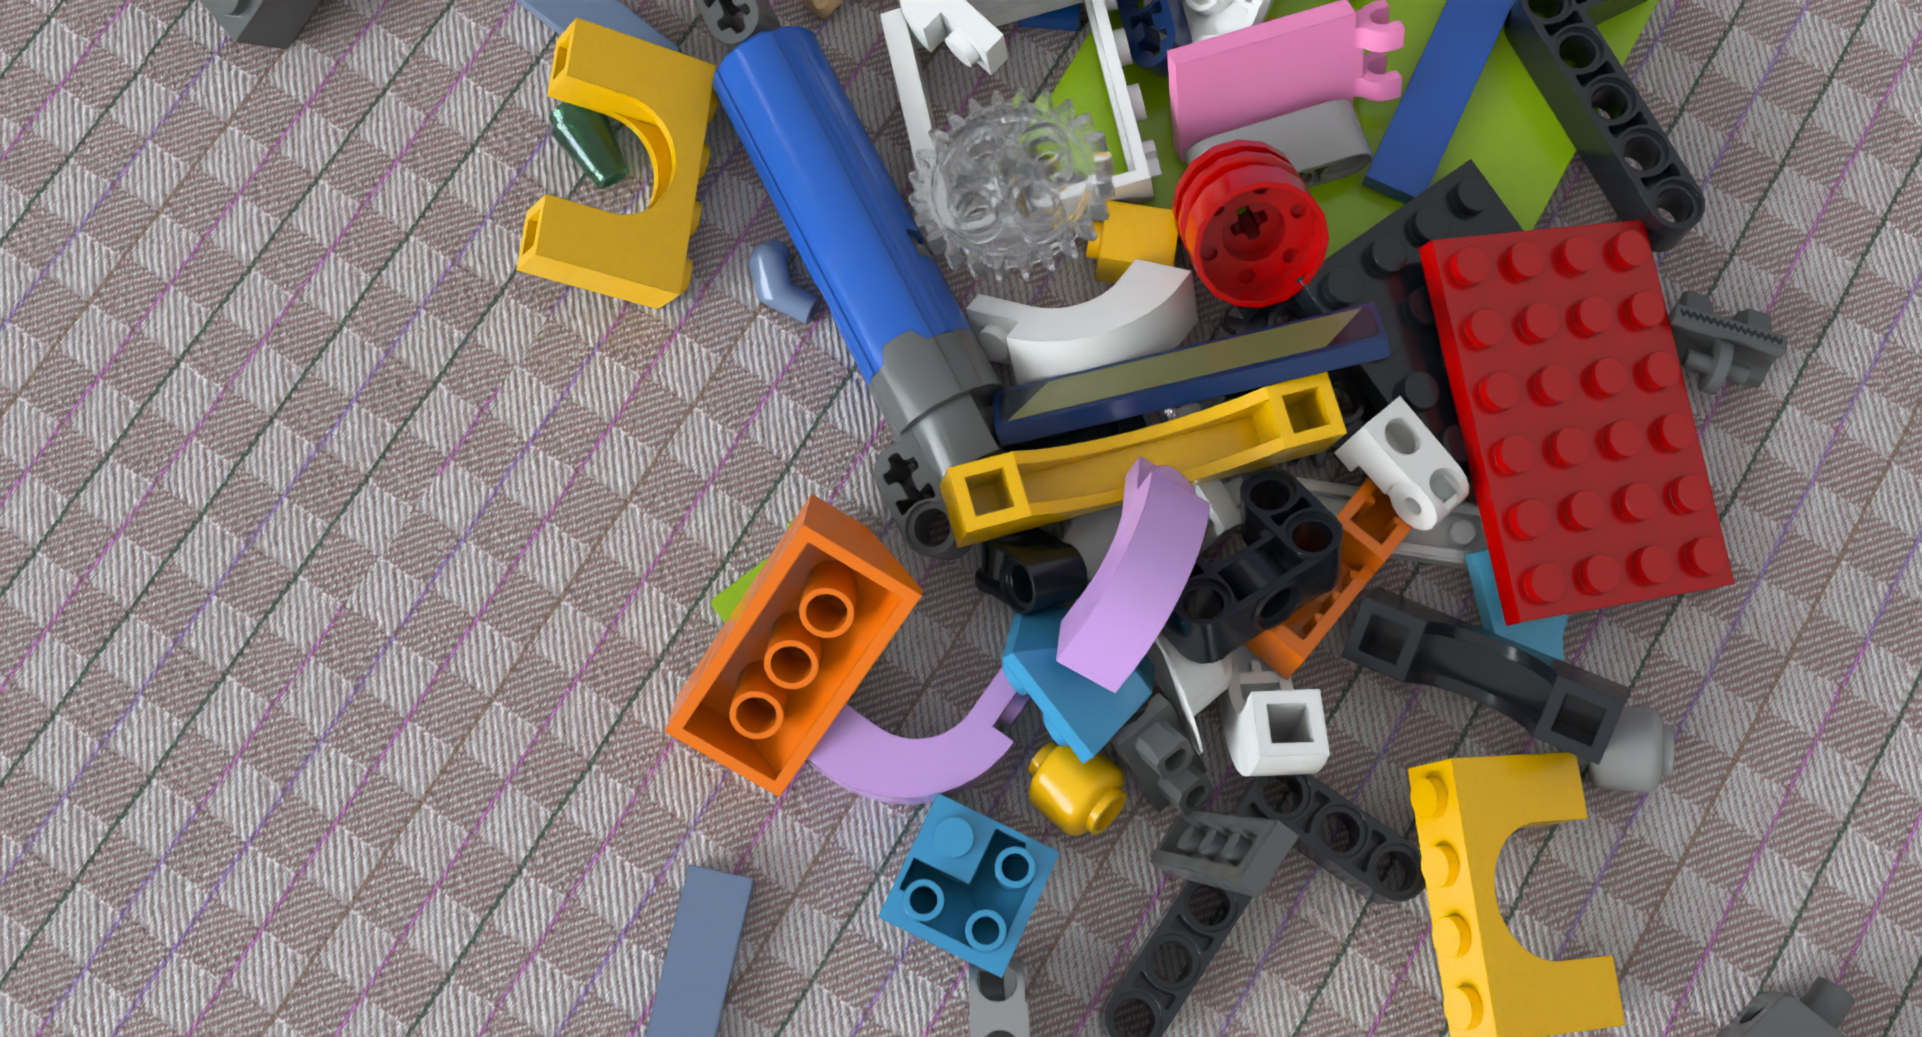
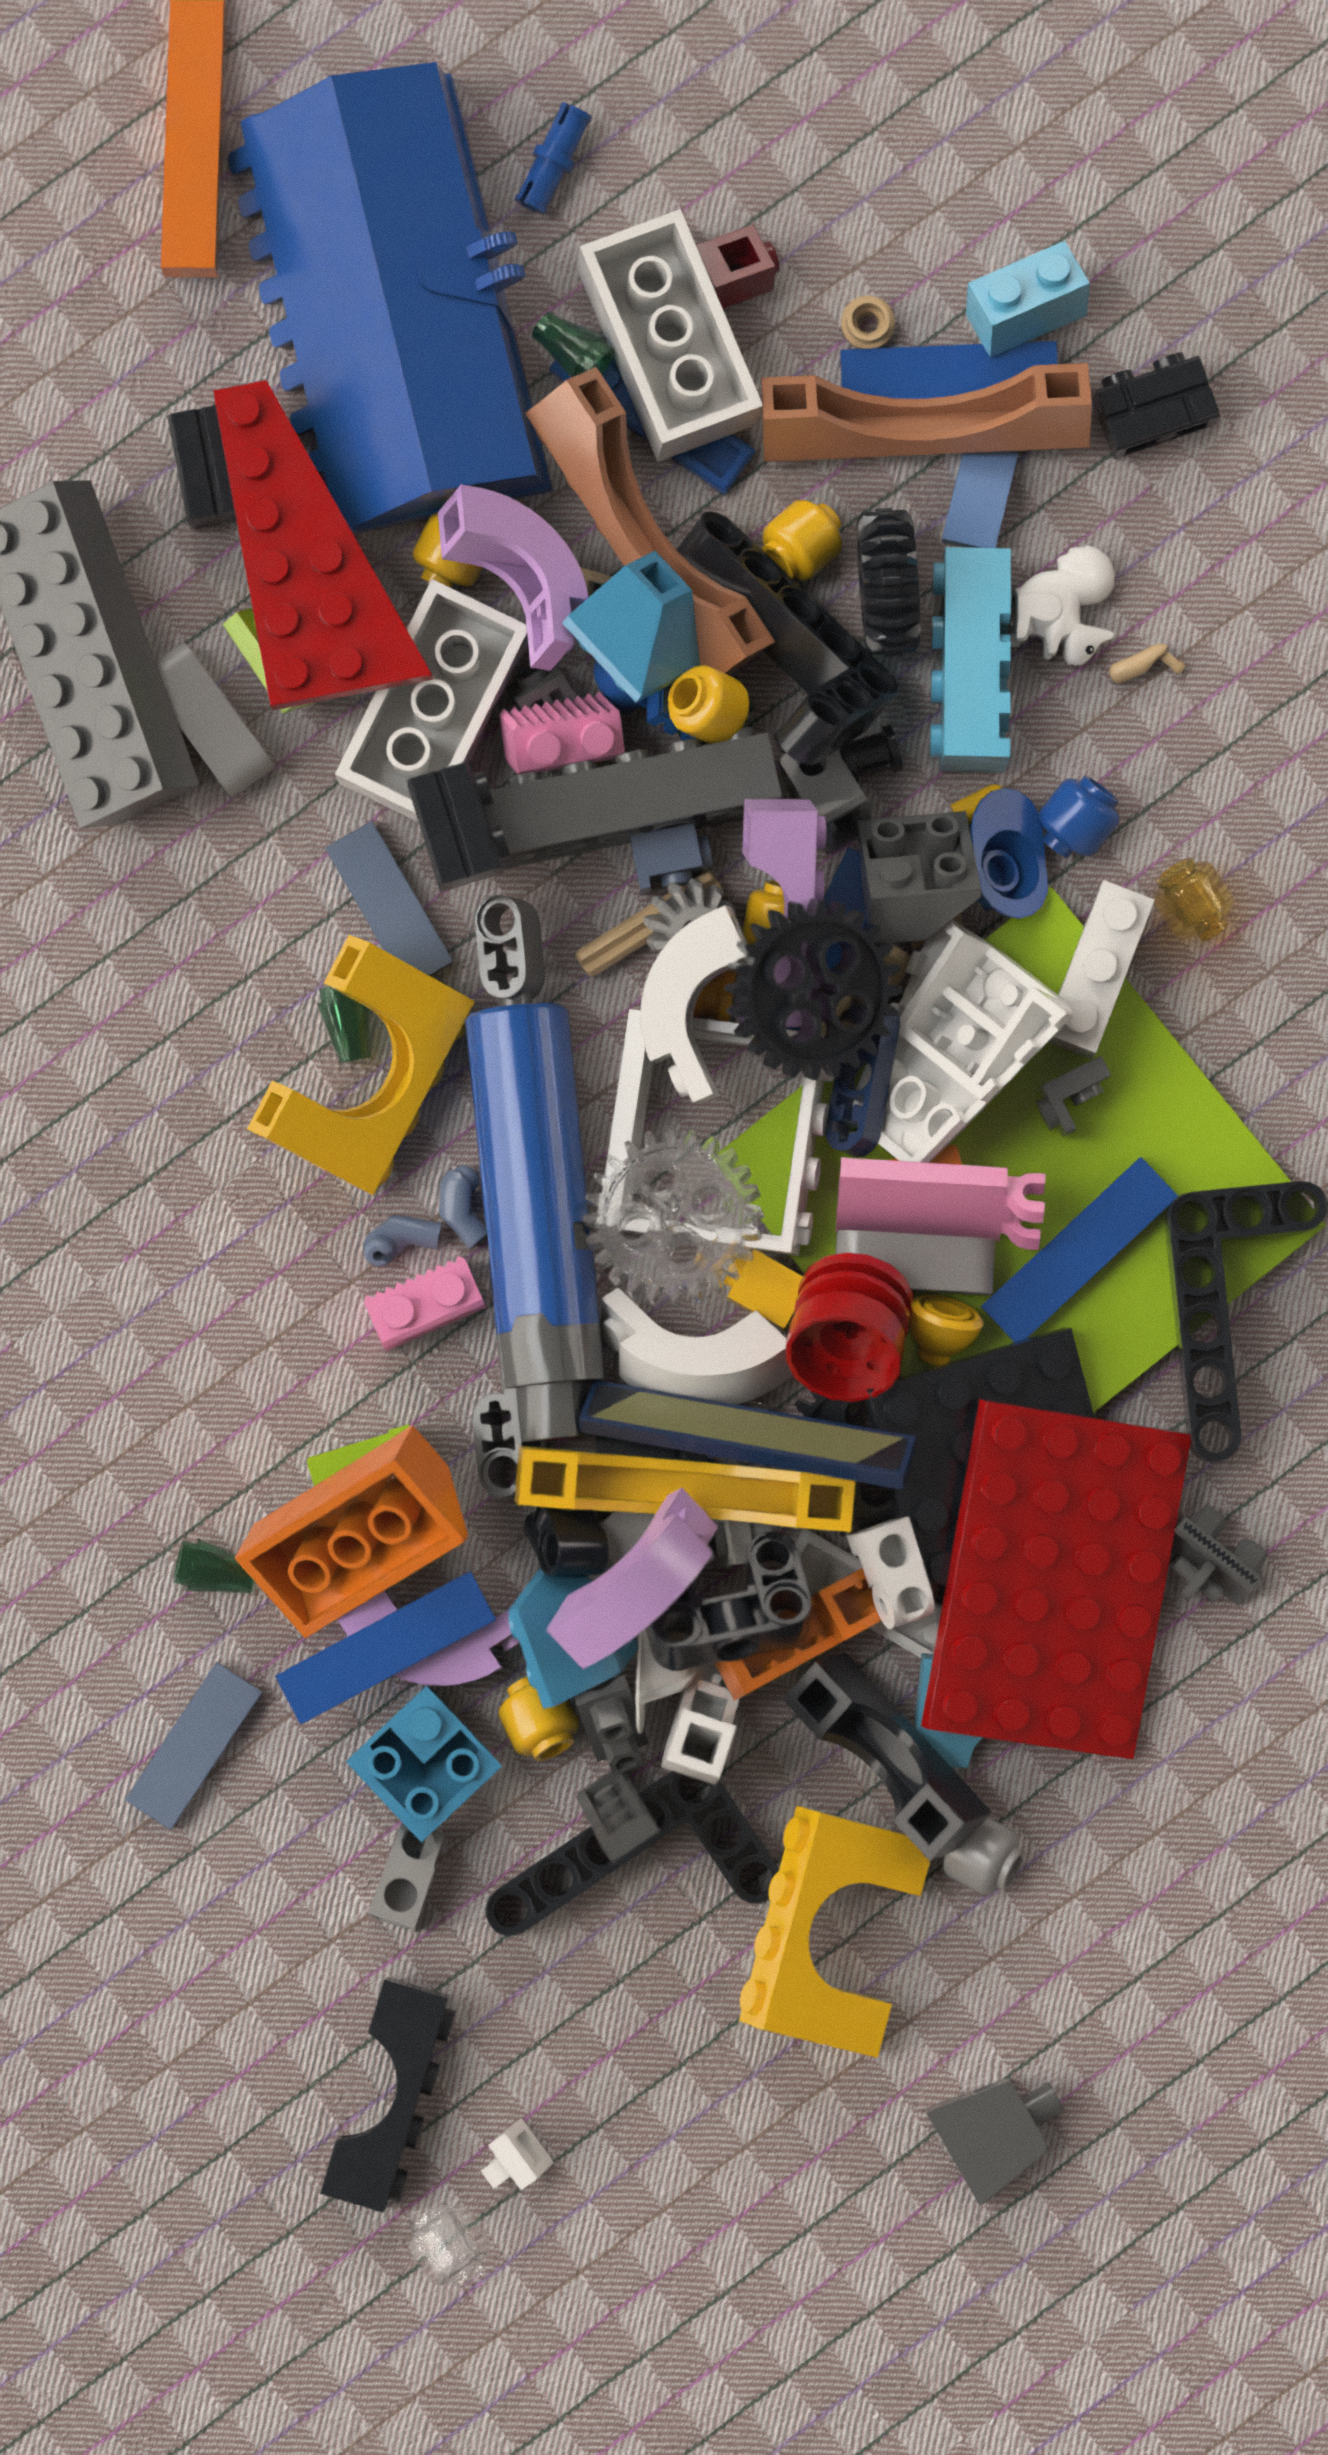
camera: 25 degrees right, 10 degrees up
(647, 762) = (210, 1569): none -> clear green cone
(724, 334) = (398, 1233): none -> sand blue arm
(778, 387) = (424, 1303): none -> bright pink brick
(874, 768) = (385, 1647): none -> blue tile
(1346, 209) = (943, 1327): none -> yellow brick

